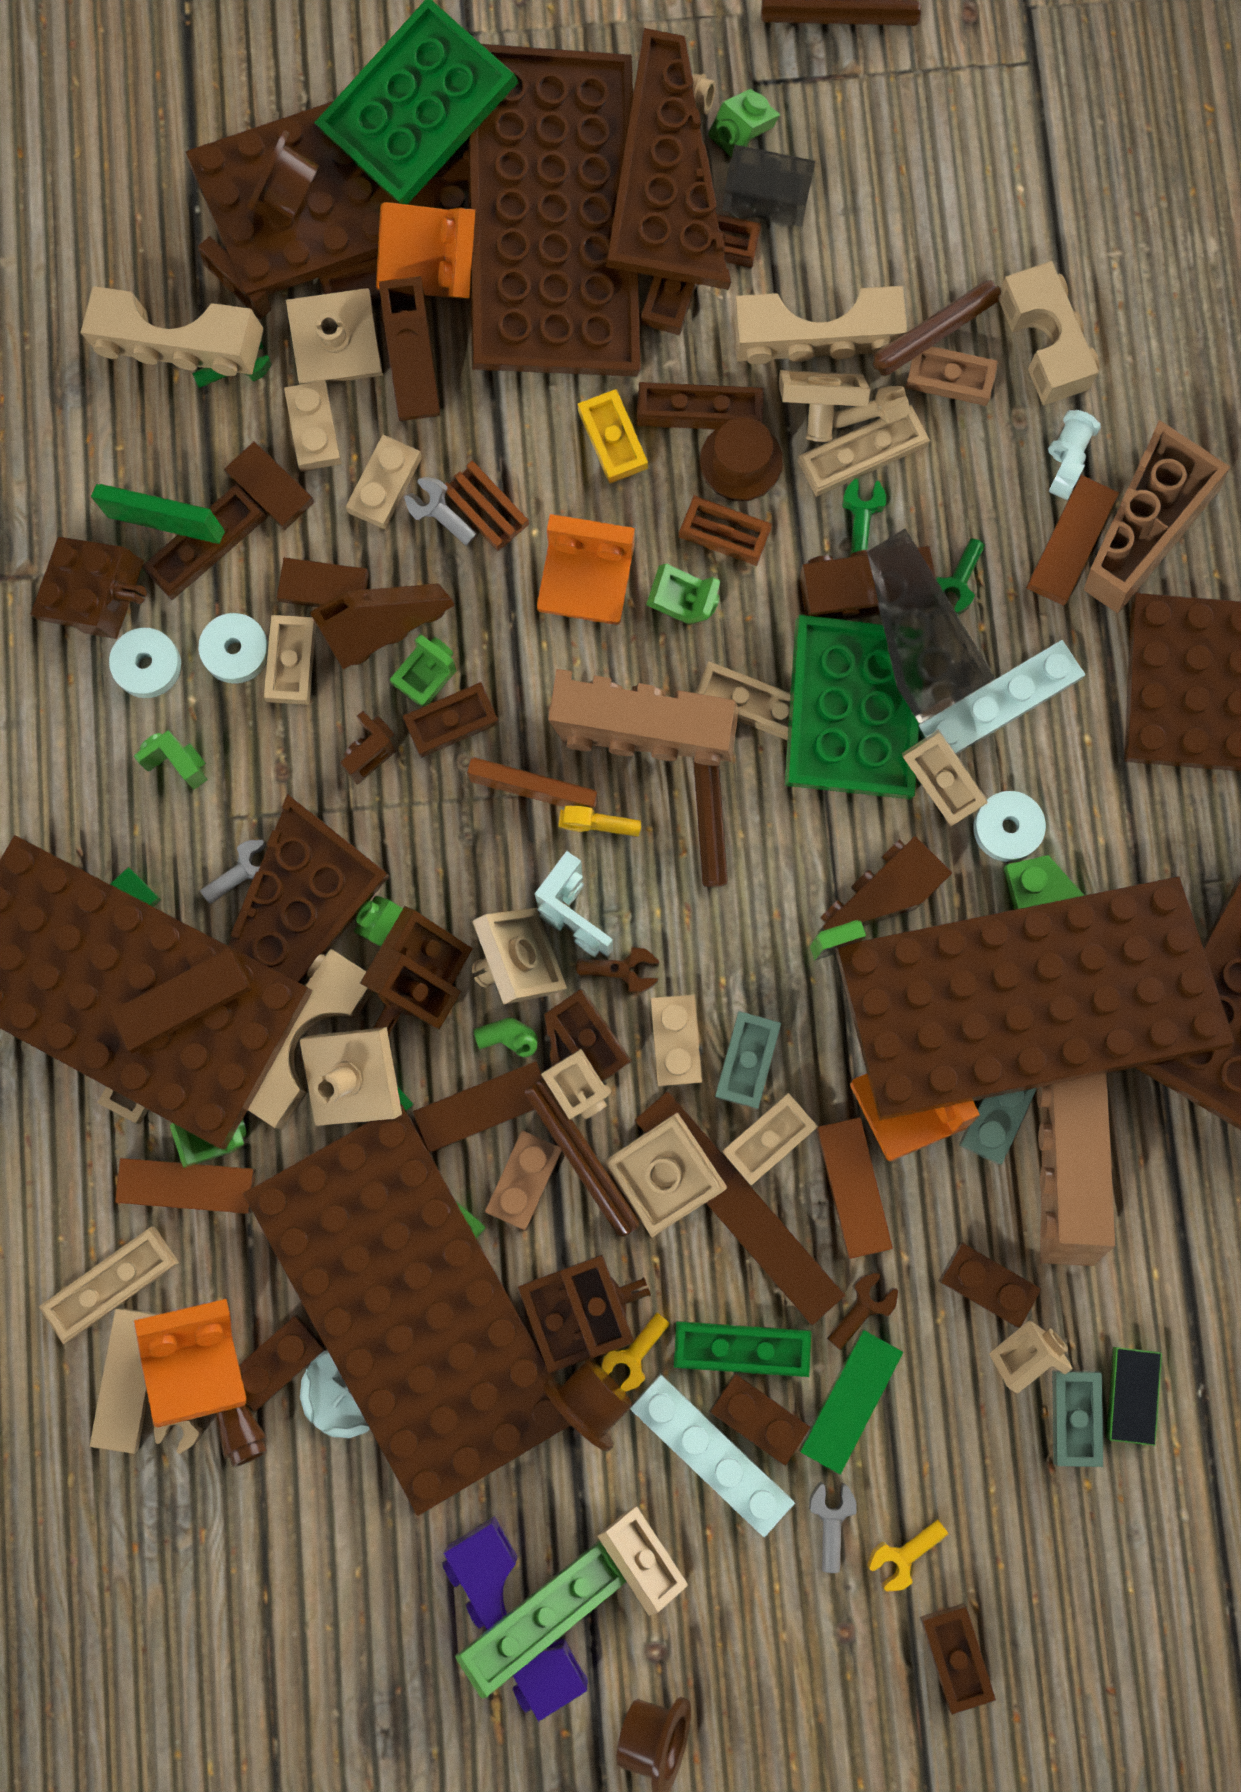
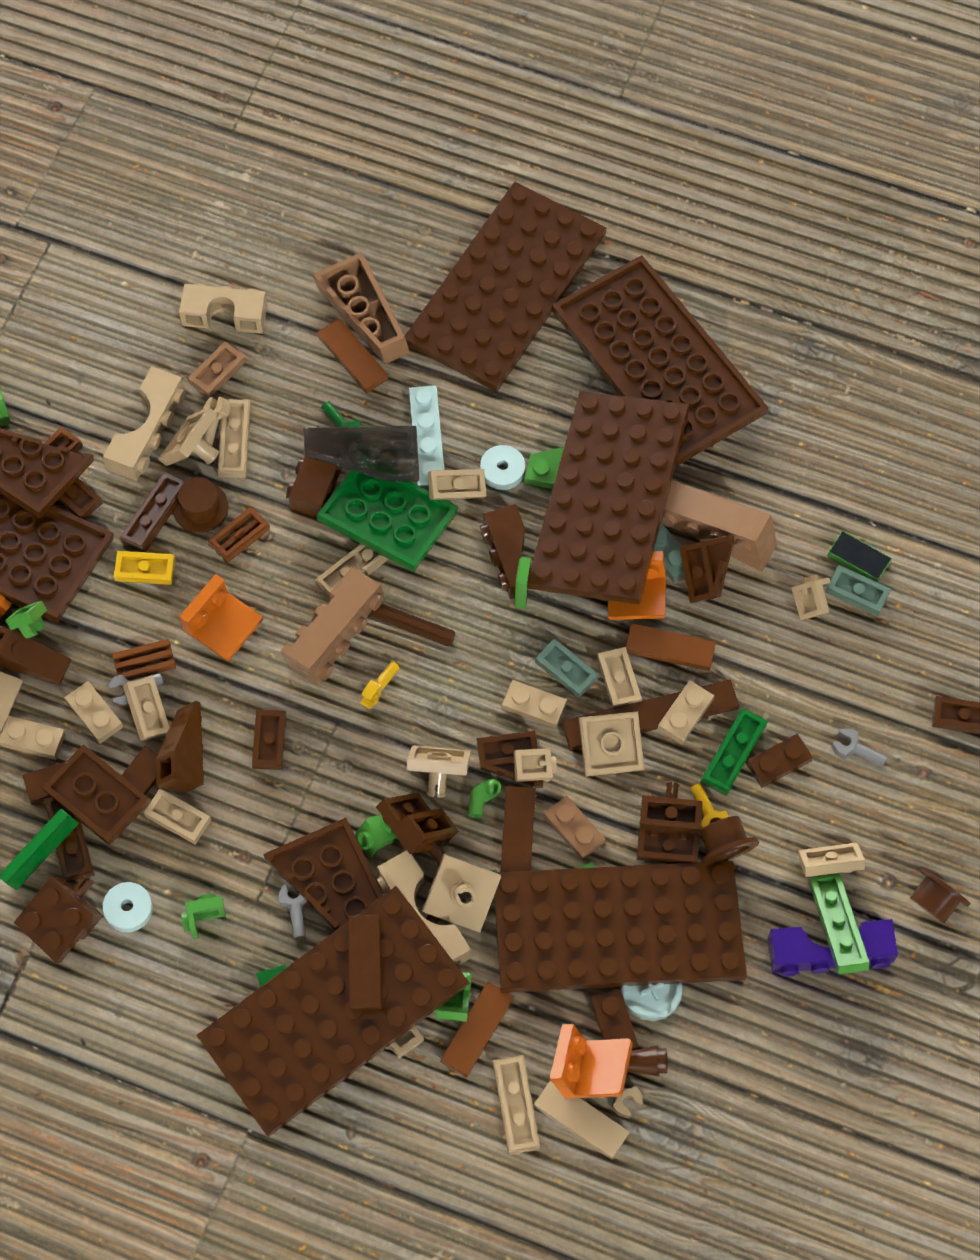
camera: 65 degrees left, 15 degrees down
(220, 635) = (155, 860): light aqua piece -> none
(263, 543) = (96, 794): none -> reddish brown plate
(367, 755) = (259, 787): reddish brown bracket -> none
(414, 543) = (146, 708): none -> tan plate
(425, 671) = (230, 739): bright green bracket -> none
(452, 324) = (28, 619): none -> bright green tile
(530, 784) = (335, 711): dark orange tile -> none
(563, 886) = (424, 726): light aqua bracket -> none
(582, 1159) = (578, 785): reddish brown axle -> none
(621, 969) = (475, 714): reddish brown bar -> none
(683, 595) = (267, 573): bright green bracket -> none
(712, 1455) = (789, 796): light aqua plate -> none
(761, 1256) = (685, 712): none -> tan plate
(768, 186) = (42, 410): clear smoke brick -> none
(851, 1401) = (792, 706): green tile -> none
(862, 512) = (271, 456): green bar -> none
(862, 1309) = (742, 674): reddish brown bar -> none
(905, 1555) = (894, 719): yellow bar -> none
(936, 327) = (186, 362): reddish brown axle -> none
(989, 1285) = (761, 602): reddish brown plate -> none
(994, 1185) = (706, 567): none -> reddish brown wing
(1070, 450) = (301, 331): light aqua connector -> none

